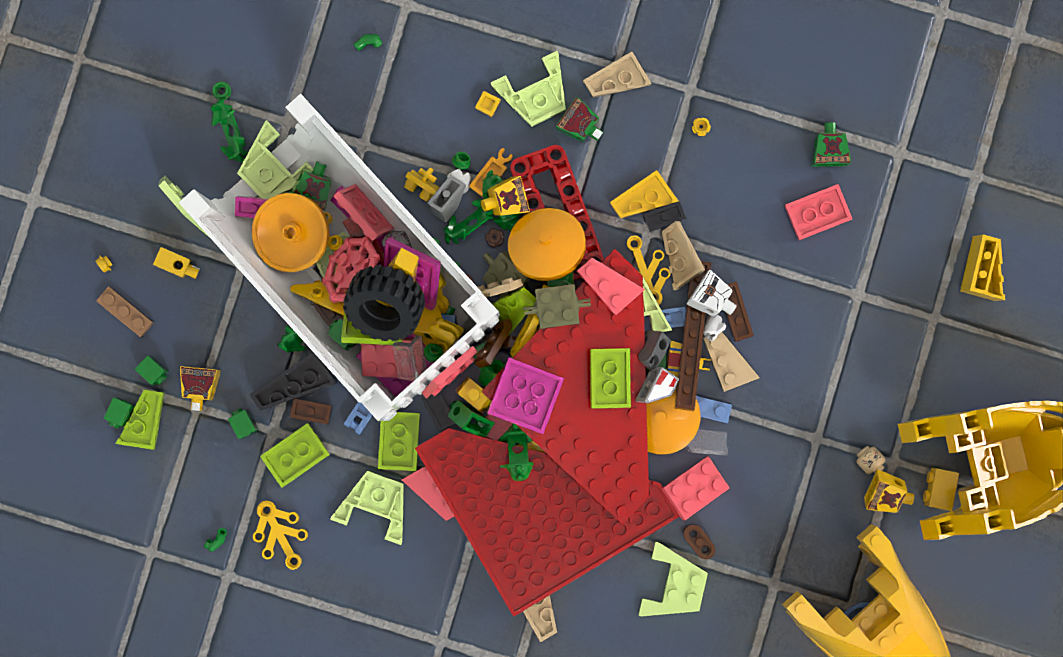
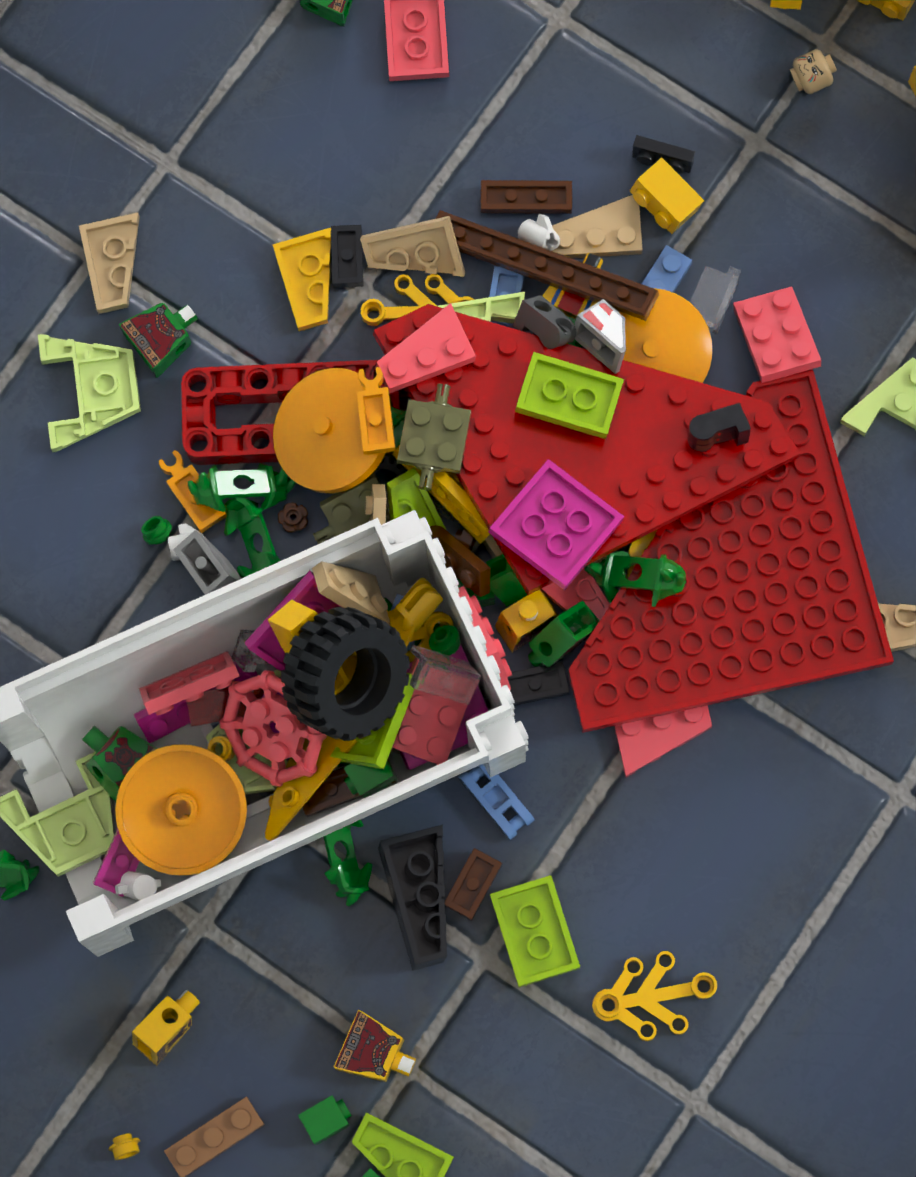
camera: 65 degrees left, 10 degrees down
(175, 195) = (77, 973): yellowish green wing -> none
(218, 541) = (633, 1095): green arm -> none
(240, 222) = (137, 885): none -> white piece
(242, 423) = (457, 998): green brick -> none
(380, 497) = (640, 821): yellowish green wing -> none
(399, 441) = (566, 761): lime plate -> none
(415, 179) = (183, 592): yellow hips -> none
(440, 290) = (351, 589): none -> tan wing
(487, 104) = (82, 464): yellow plate -> none
(507, 197) = (239, 469): torso -> none
(557, 267) = (375, 415): none -> light orange plate
(619, 471) = (719, 427): none -> black leg
(699, 541) = (858, 354): reddish brown plate -> none
(701, 121) = (225, 155): yellow plate -> none
(712, 296) = (491, 218): white torso -> none
(761, 395) = (666, 196): none -> yellow brick
(787, 377) = (650, 151): none -> black plate
(887, 493) = (869, 62): yellow torso -> none

